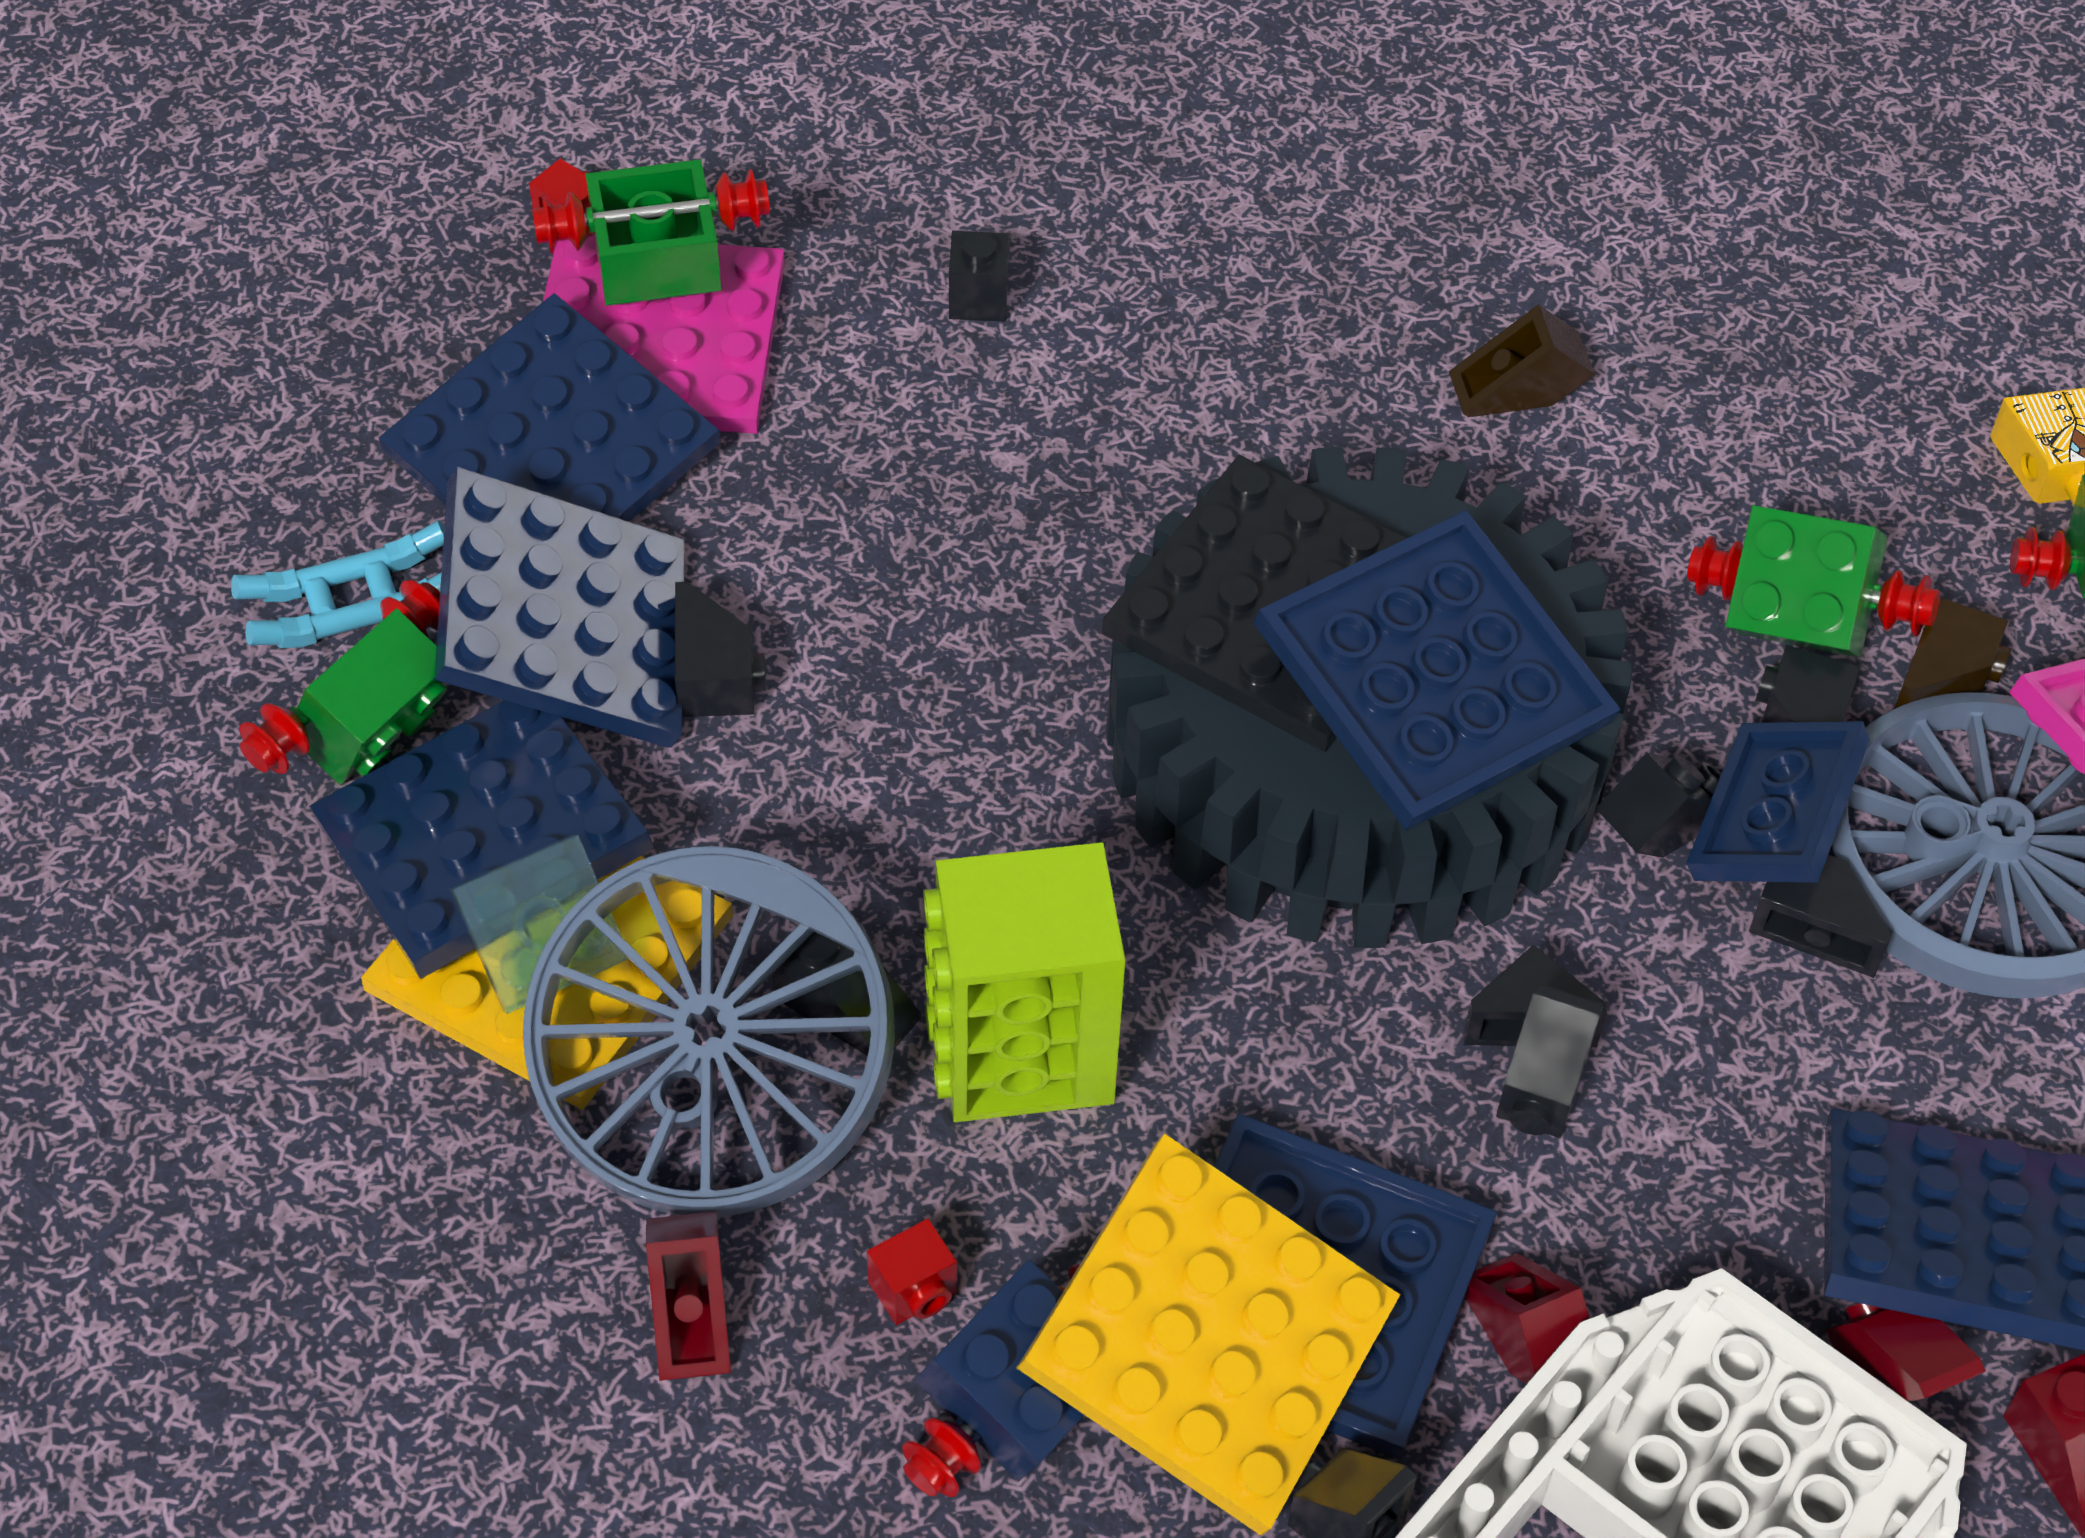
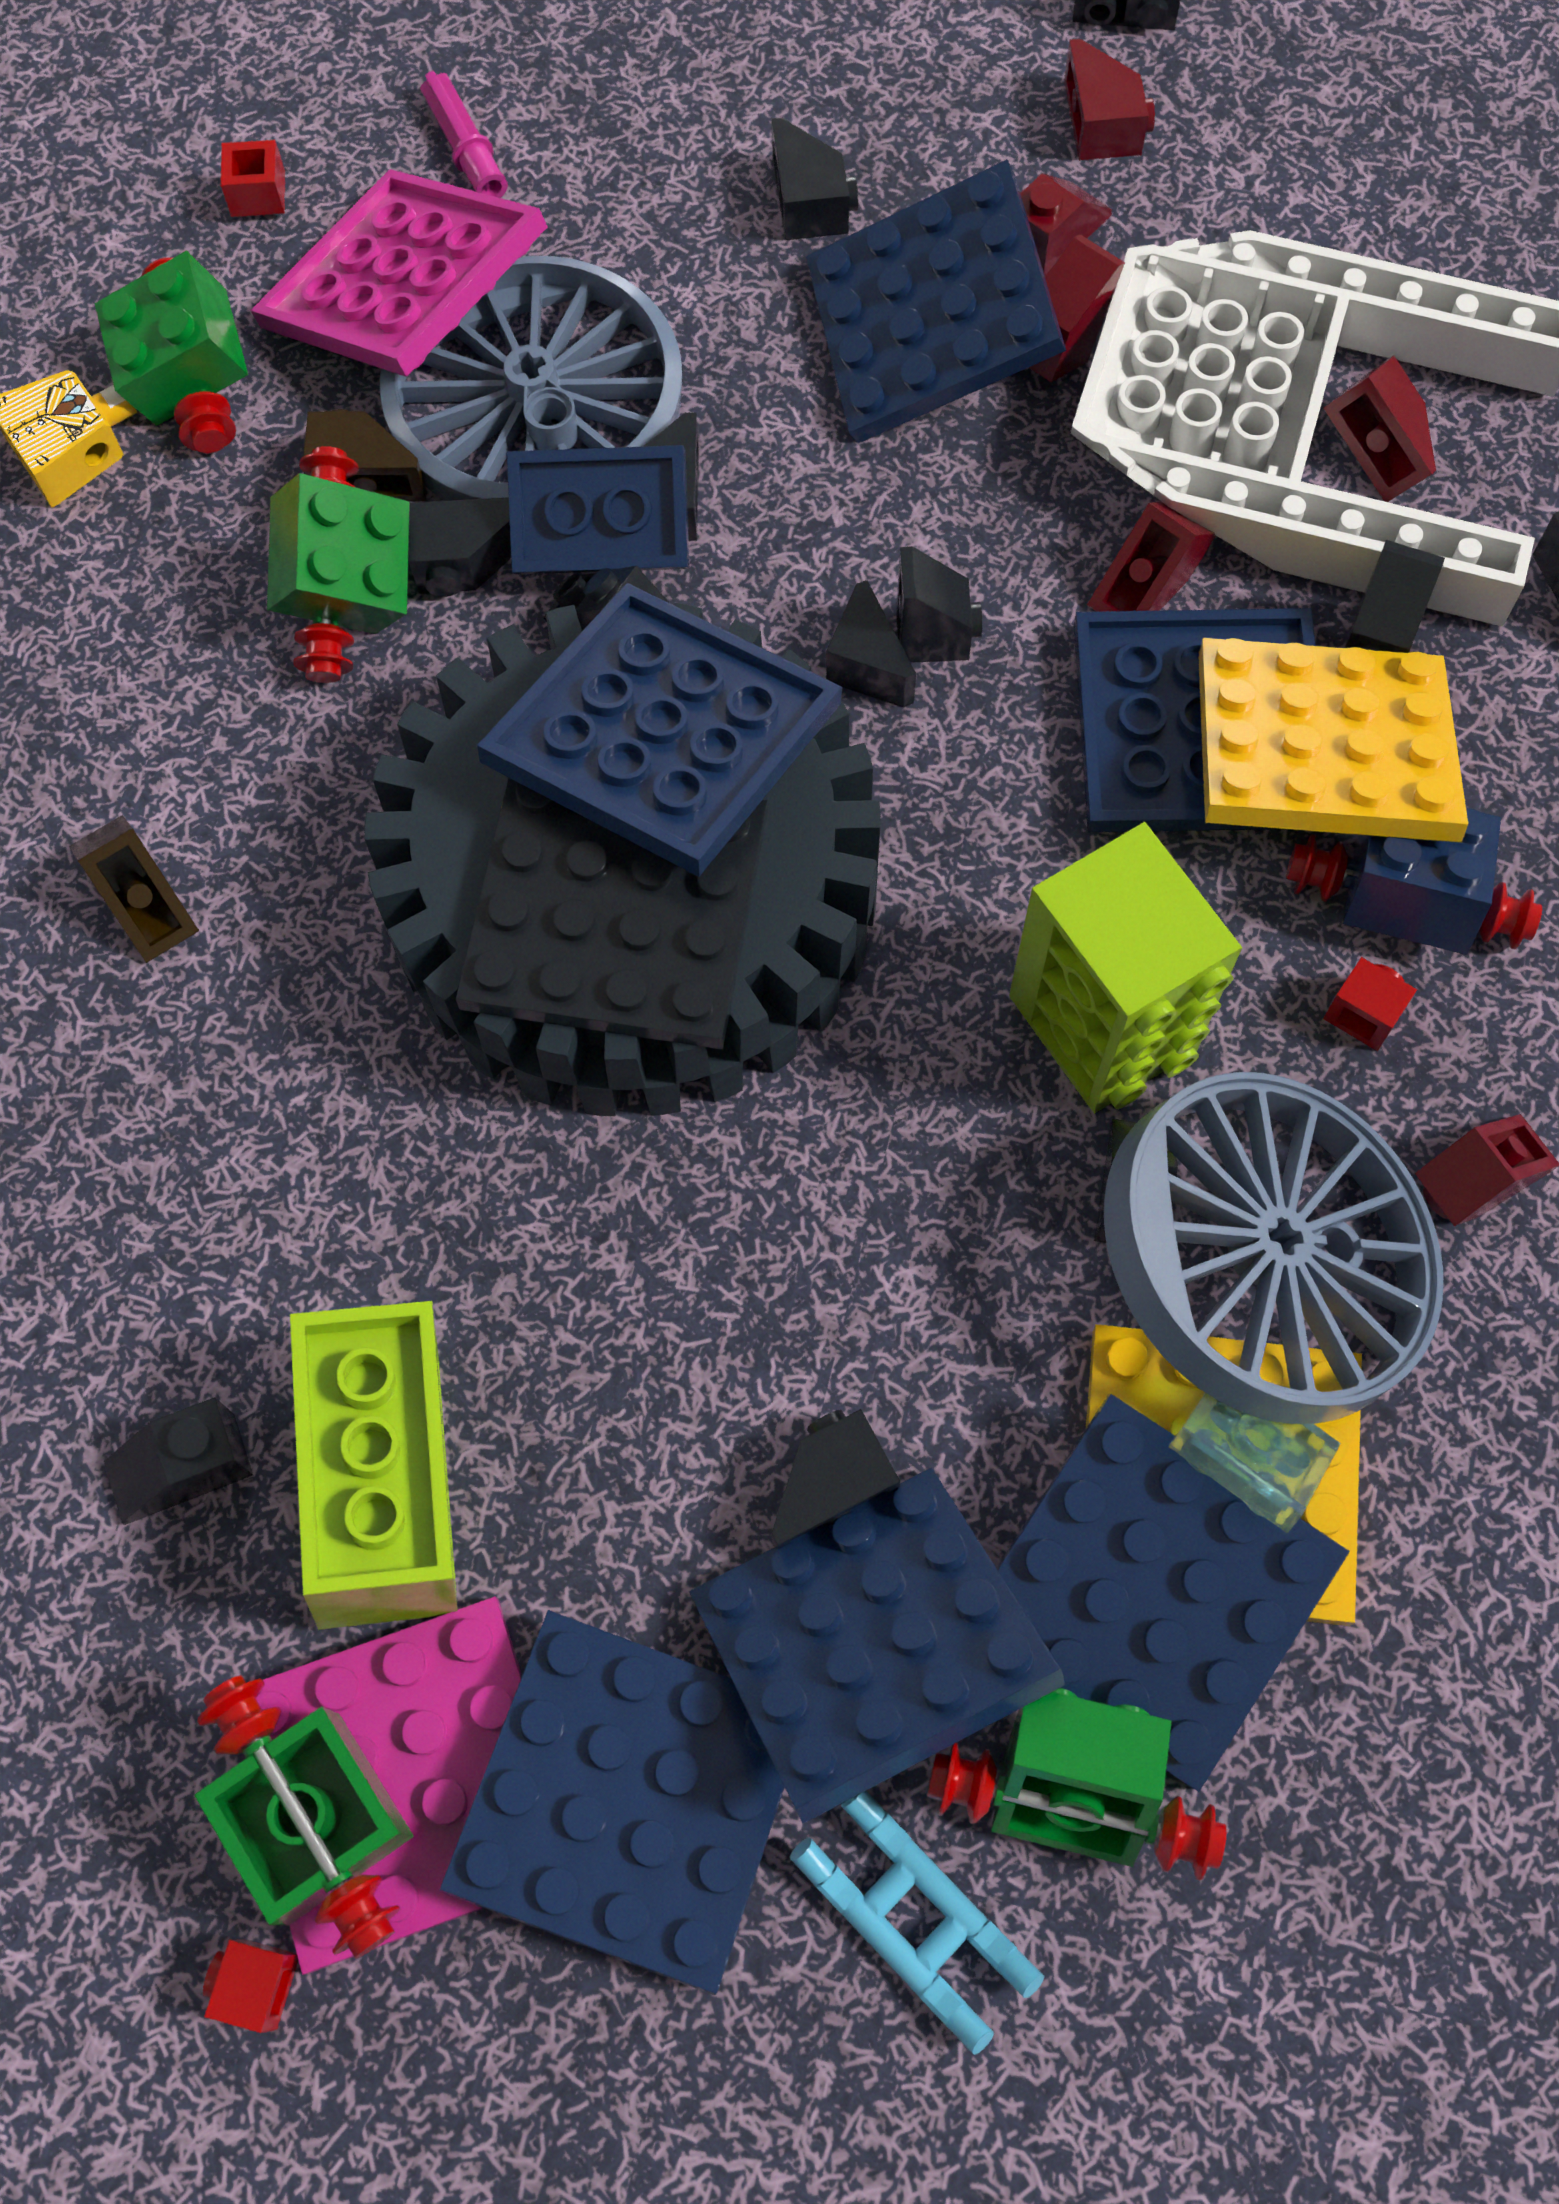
camera: 110 degrees left, 15 degrees up
(888, 341) = (371, 1465): none -> lime brick

